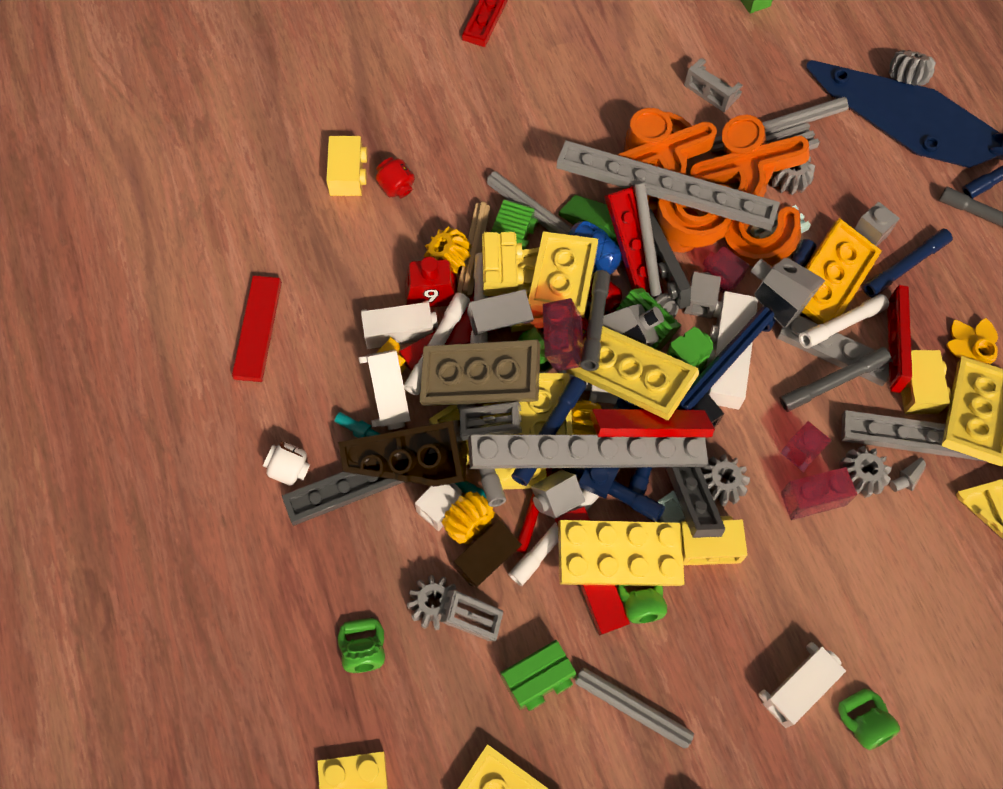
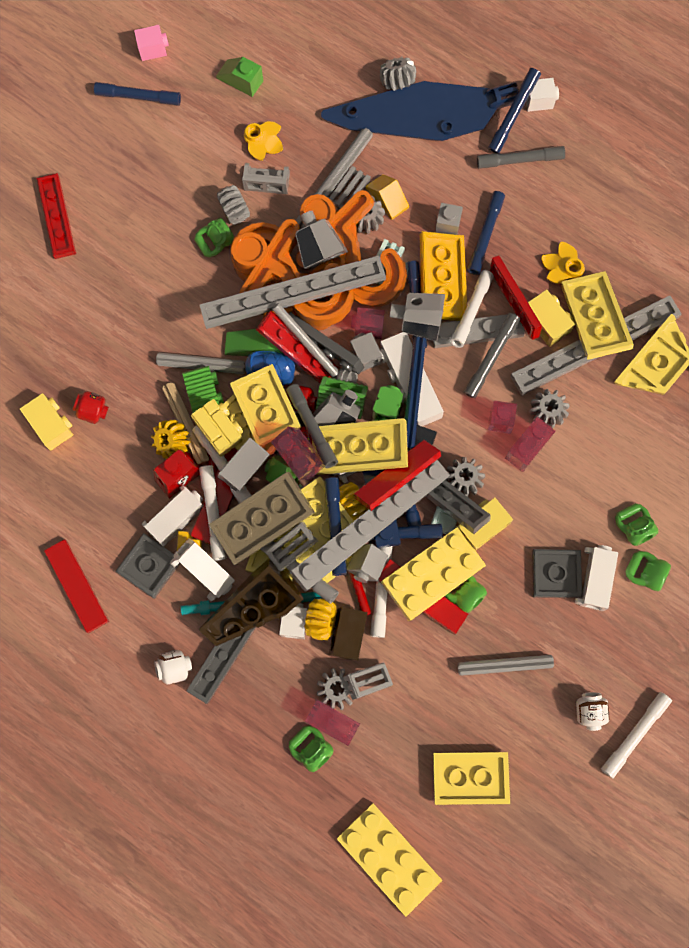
camera: 30 degrees left, 10 degrees up
(336, 355) = (148, 566): none -> dark grey tile
(403, 632) = (332, 722): none -> clear pink hinge
(538, 675) = (435, 687): bright green brick -> none
(630, 102) = (219, 234): none -> bright green piece
(664, 86) = (233, 204): none -> light grey gear
(725, 158) = (318, 241): none -> light grey torso
(734, 51) = (265, 141): none -> yellow plate
(759, 650) = (556, 573): none -> dark grey tile
(828, 171) = (389, 194): none -> yellow slope
(887, 667) = (640, 529): none -> bright green piece
(909, 476) = (578, 391): light grey bar -> none

